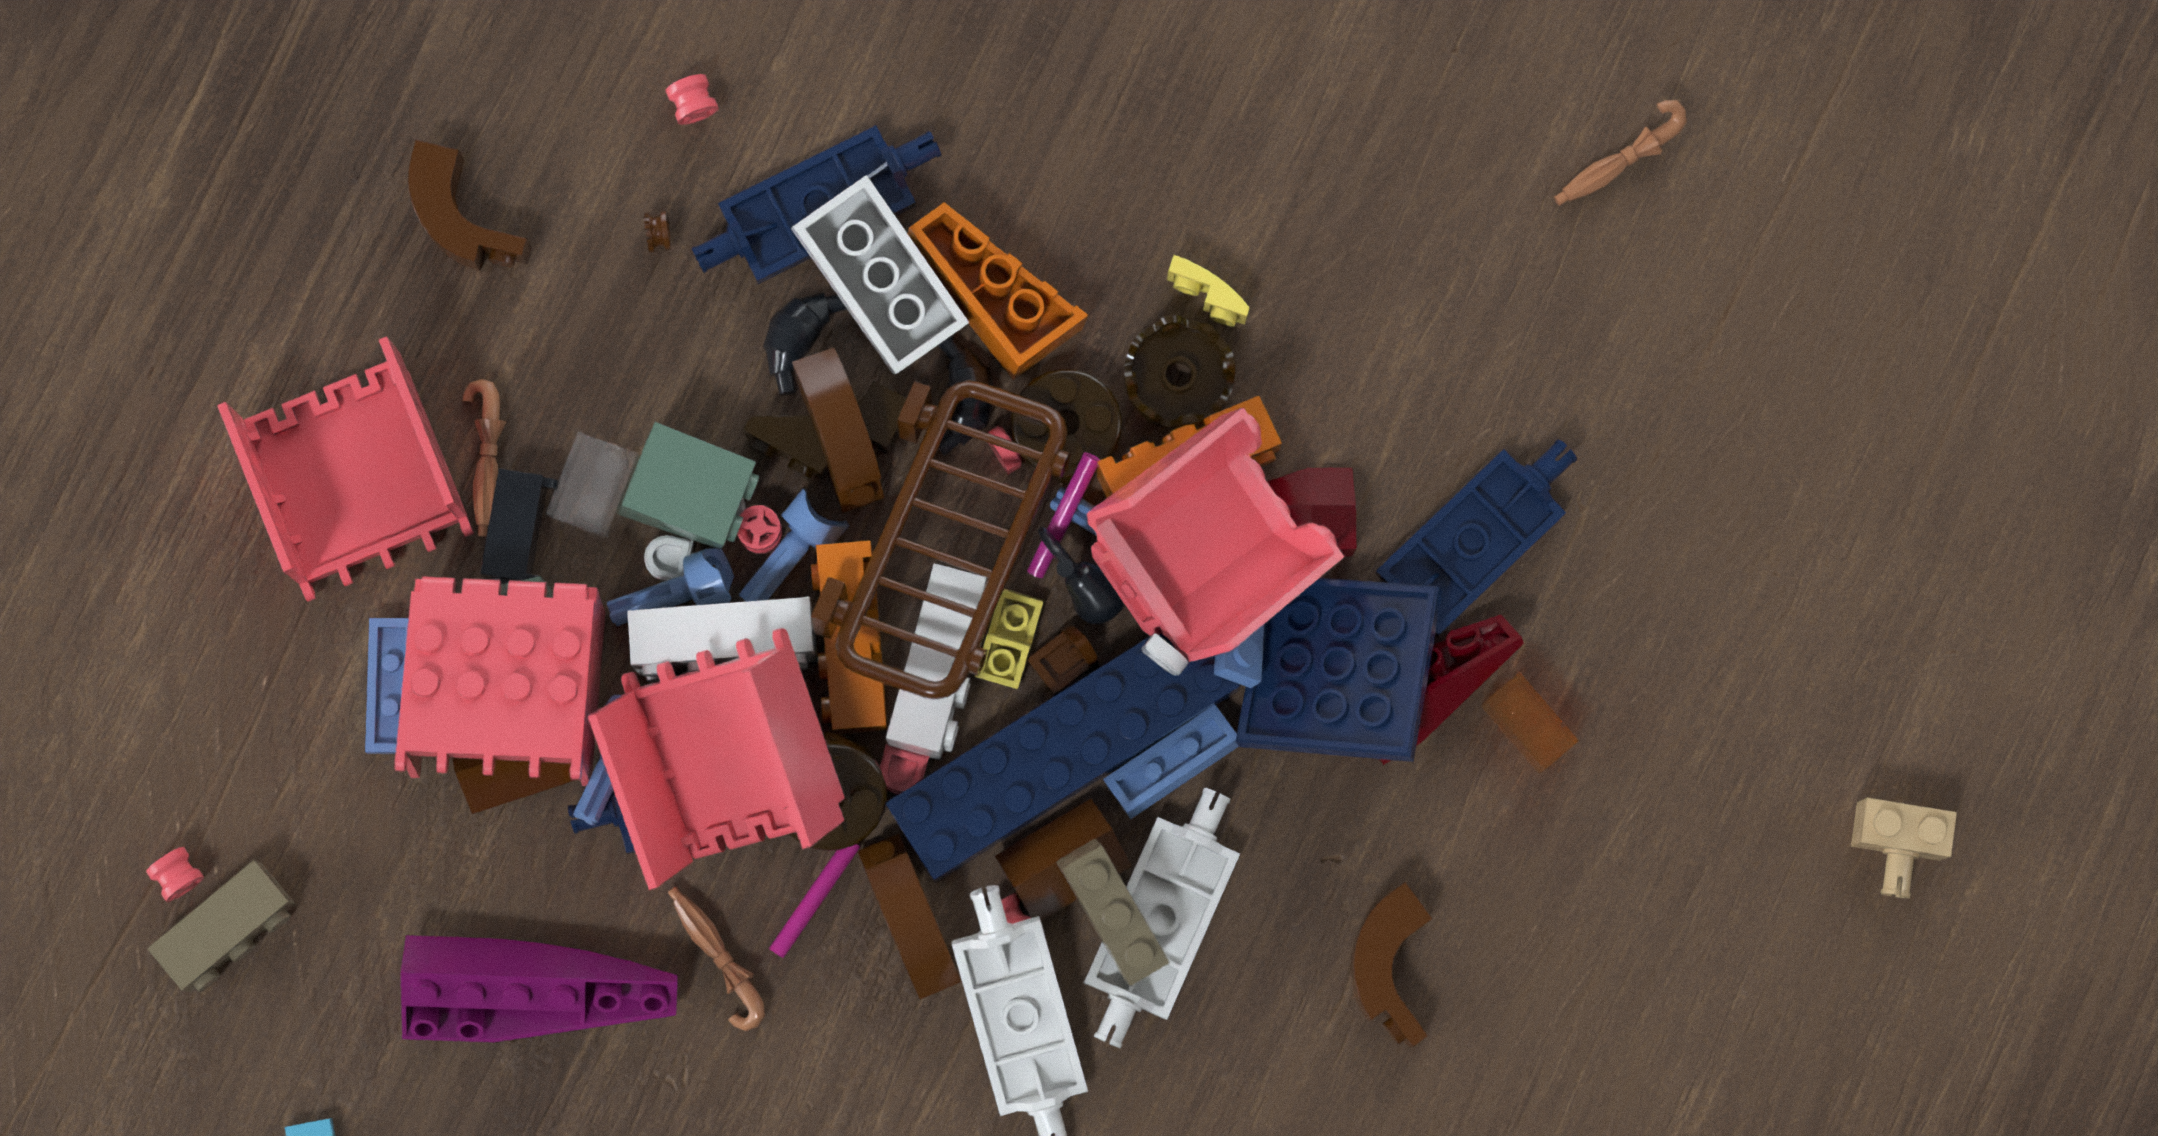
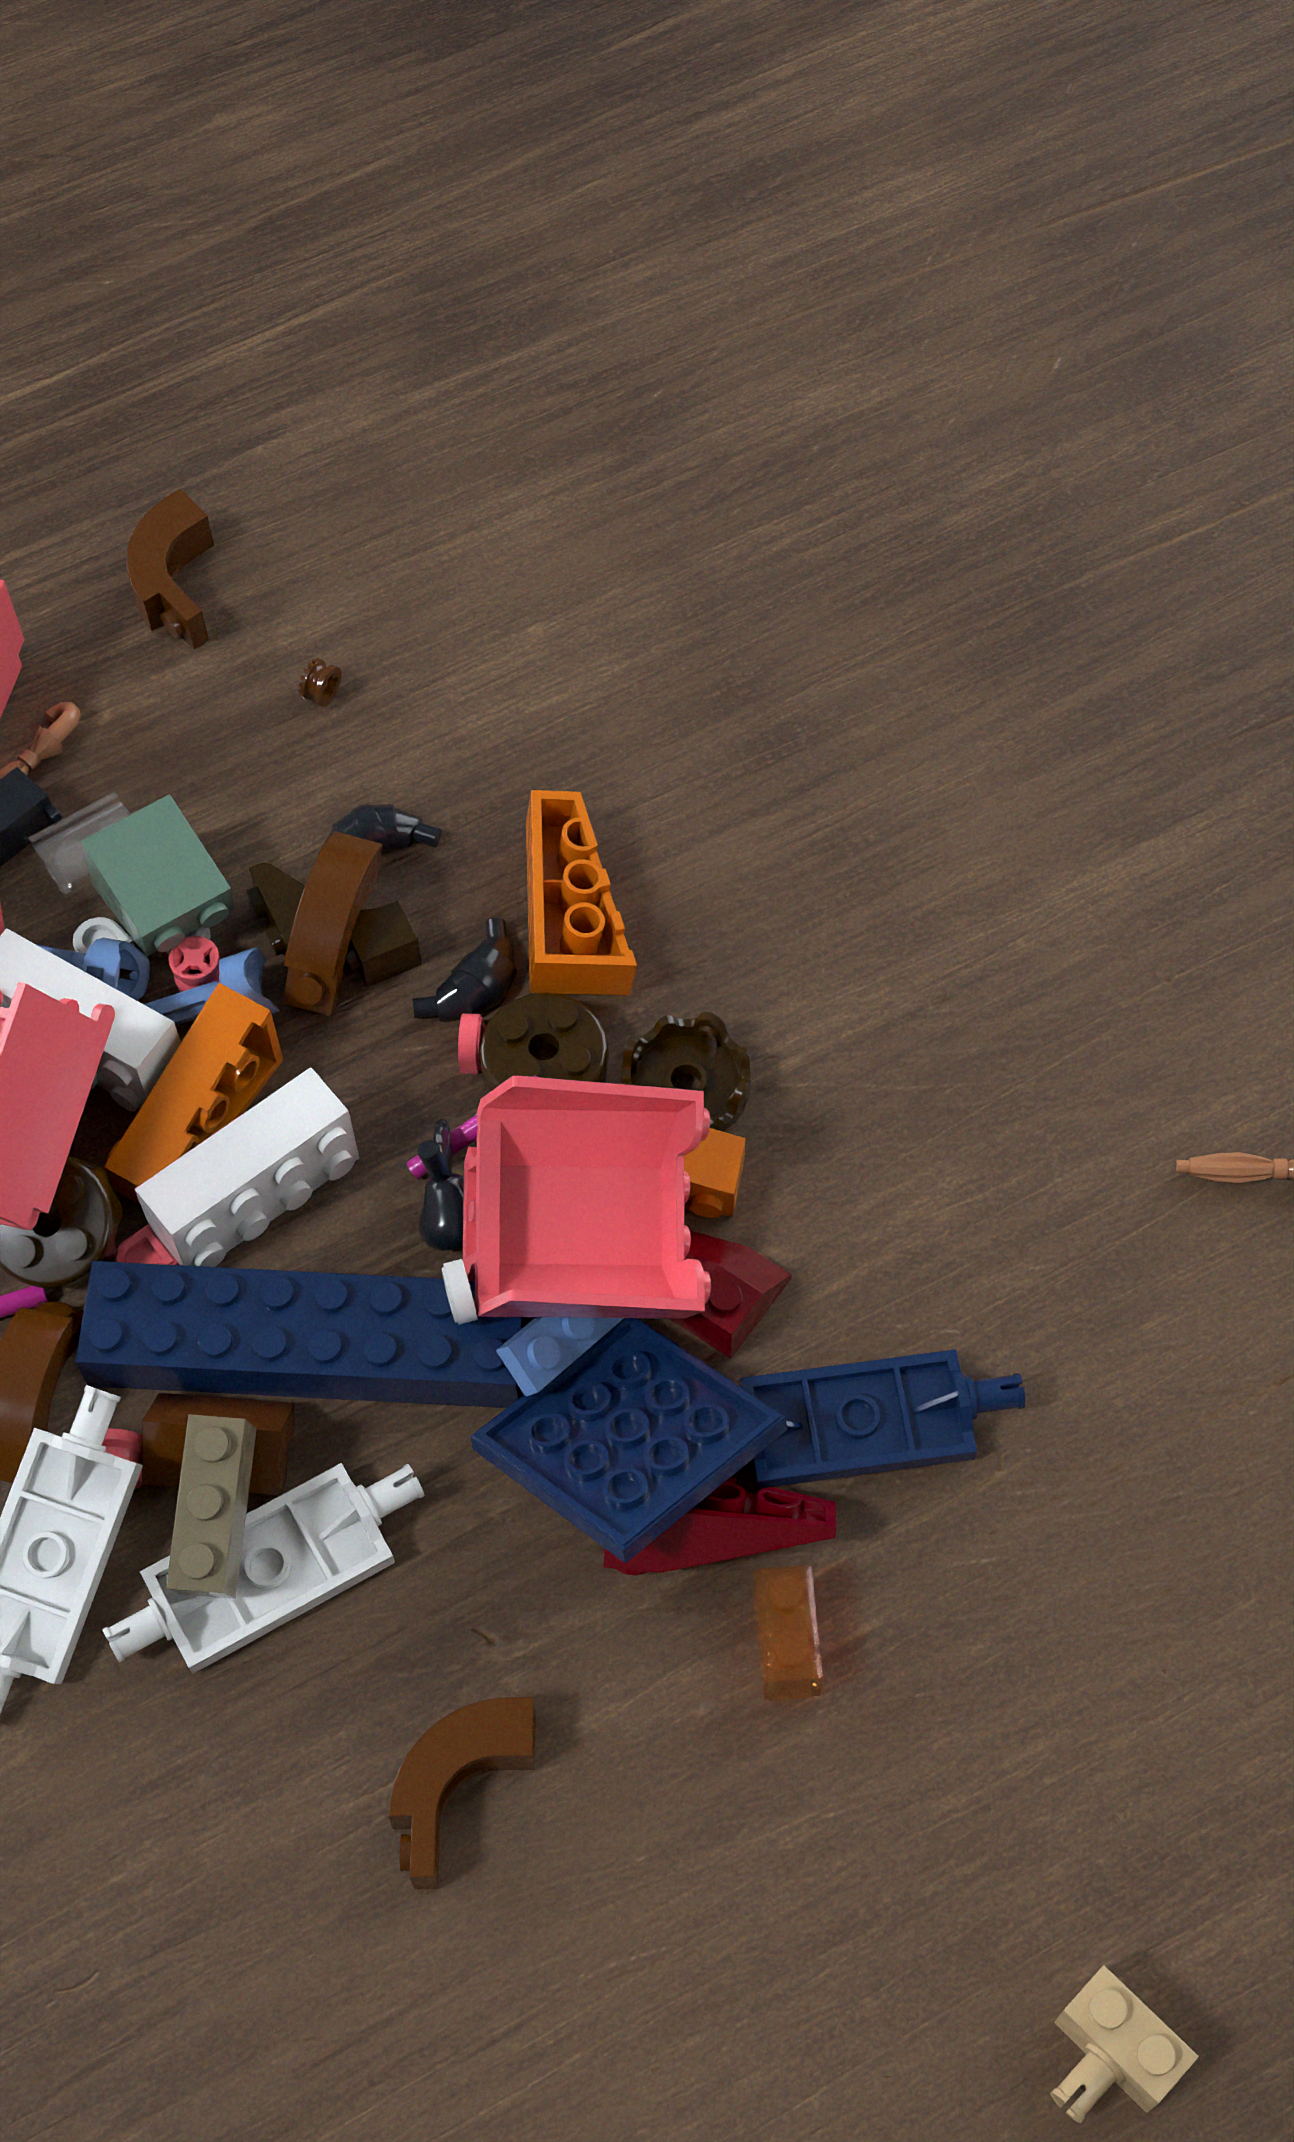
camera: 40 degrees right, 20 degrees down
(692, 99) = (436, 602): coral wheel -> none
(766, 212) = (471, 743): dark blue plate -> none
(879, 275) = (474, 818): white brick -> none
(918, 415) = (408, 953): reddish brown bar -> none
(1010, 638) = (341, 1212): light yellow slope -> none
(1064, 659) = (375, 1255): reddish brown tile -> none
(1172, 761) = (397, 1422): medium blue plate -> none
(1221, 300) = (774, 1034): light yellow slope -> none

